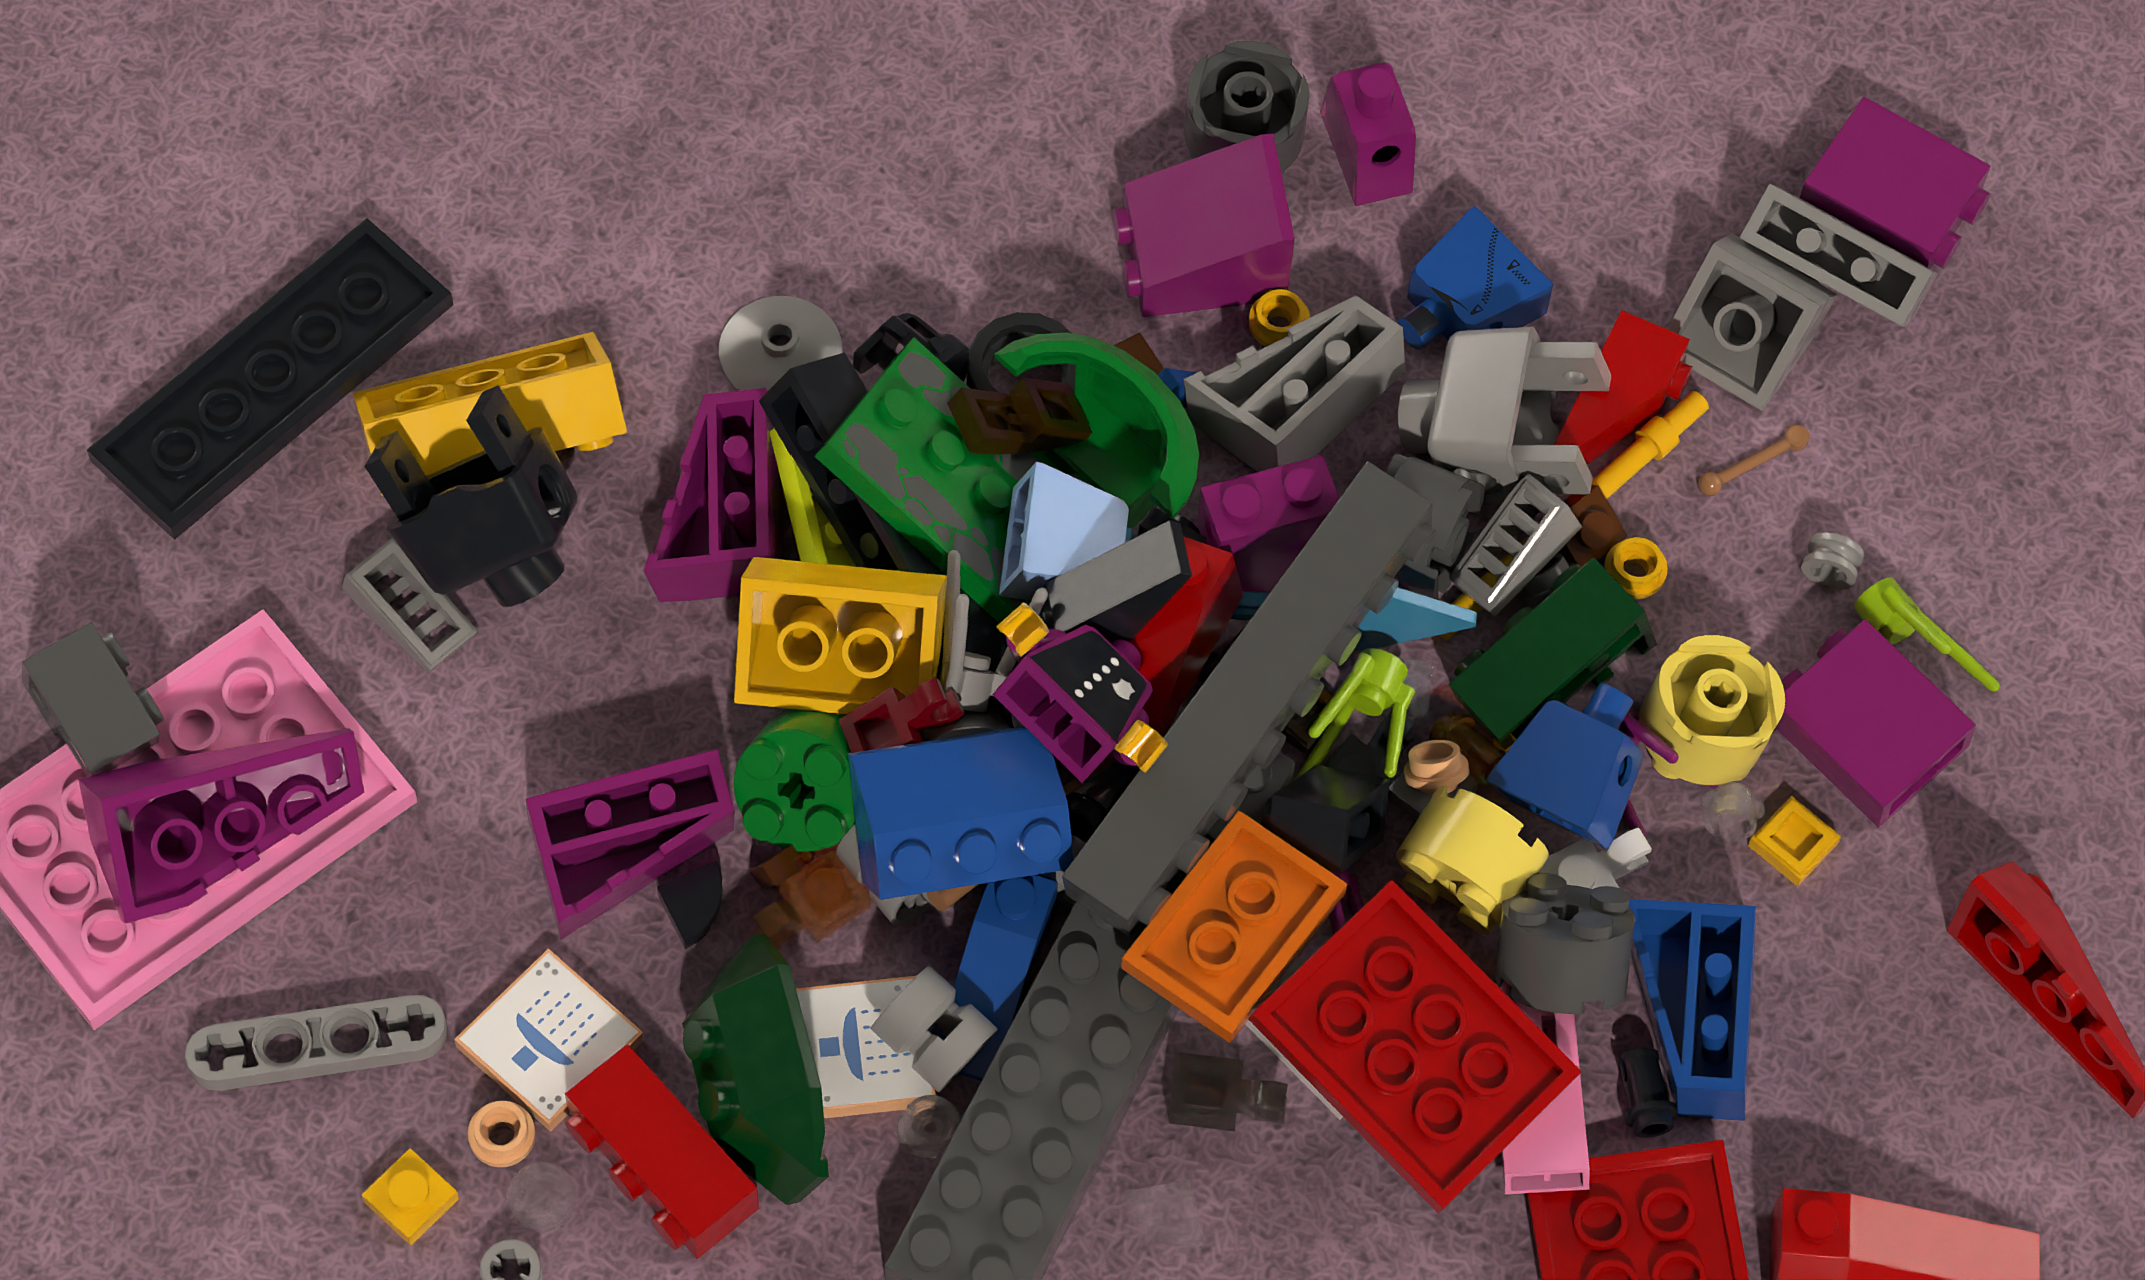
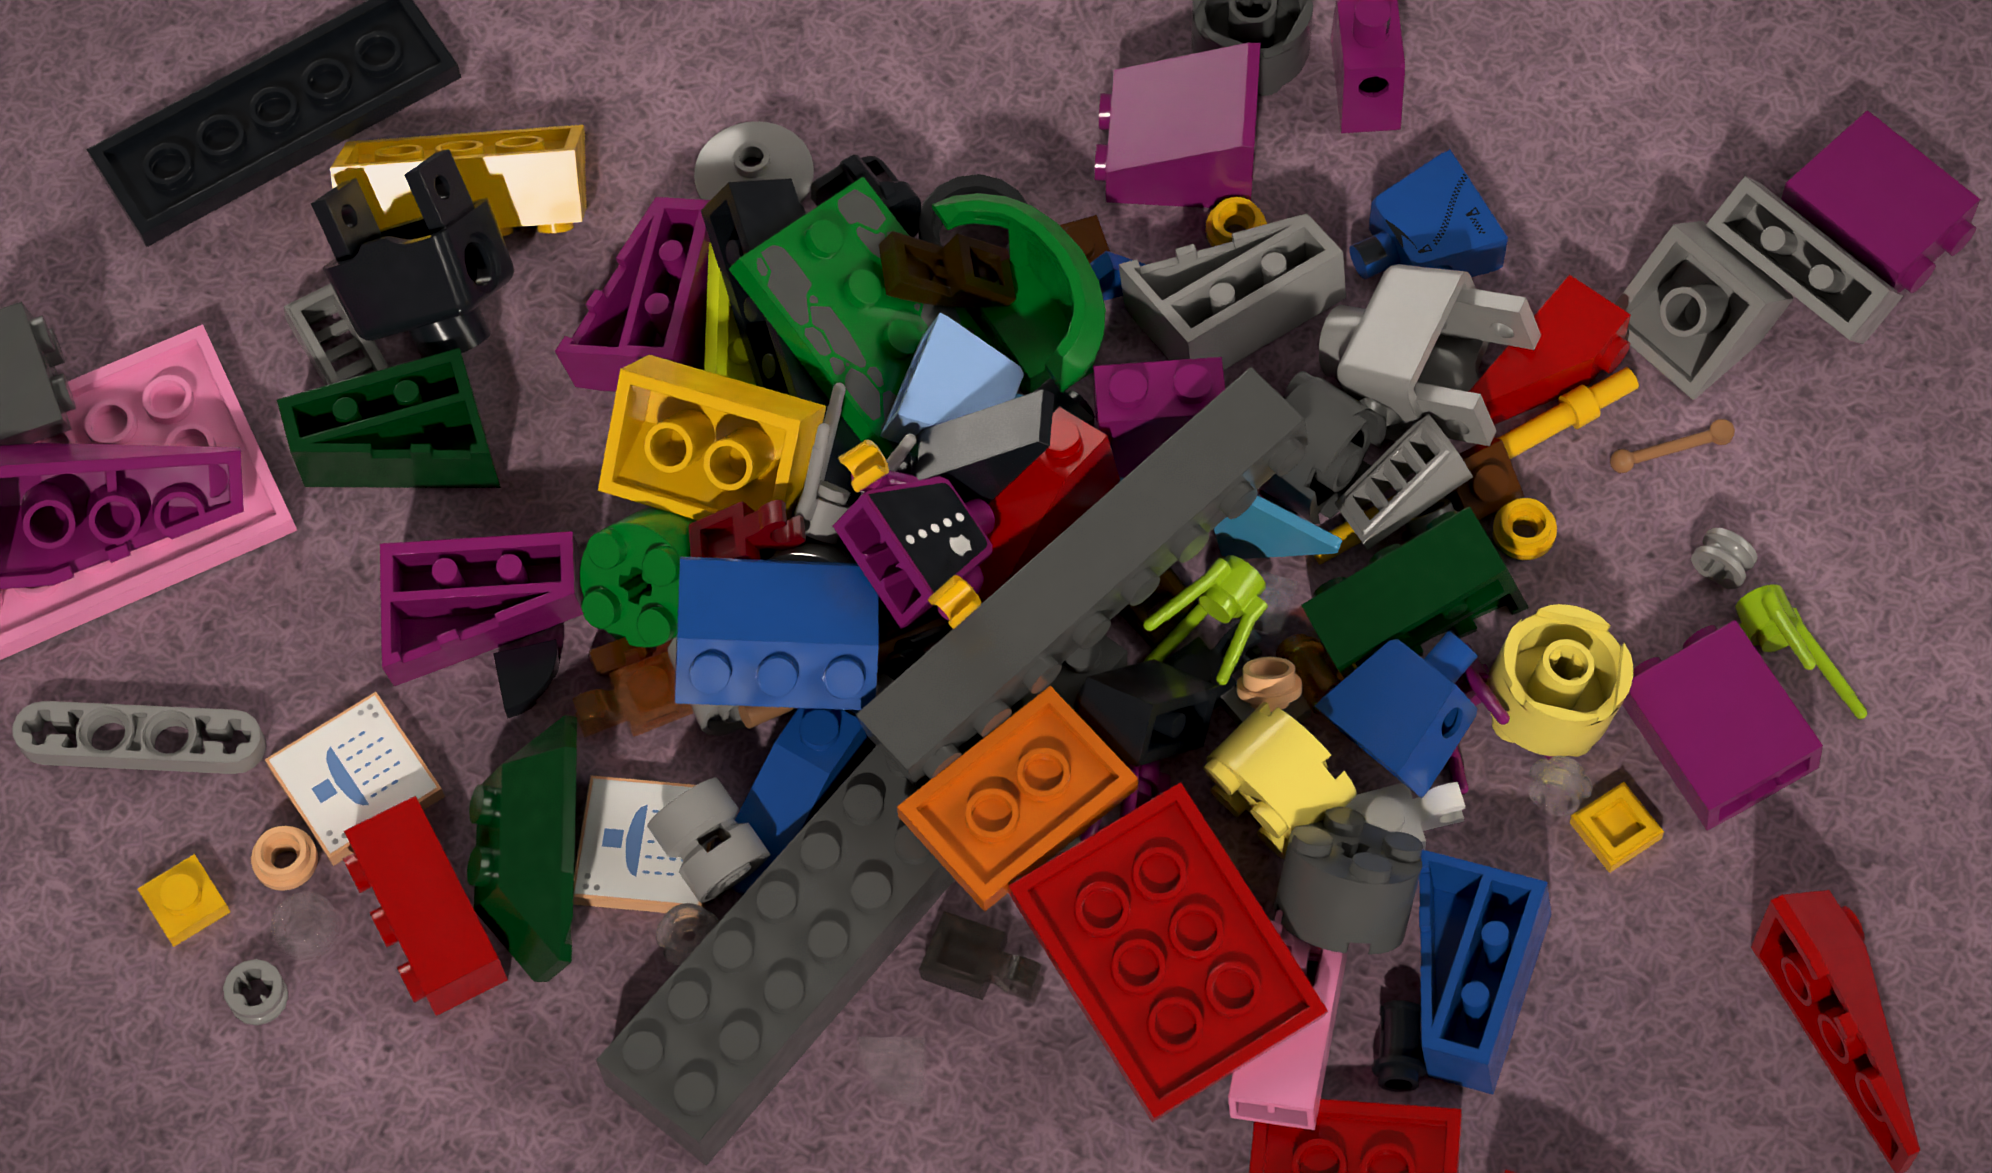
camera: 20 degrees right, 0 degrees up
(496, 680) = (392, 429): none -> dark green wedge

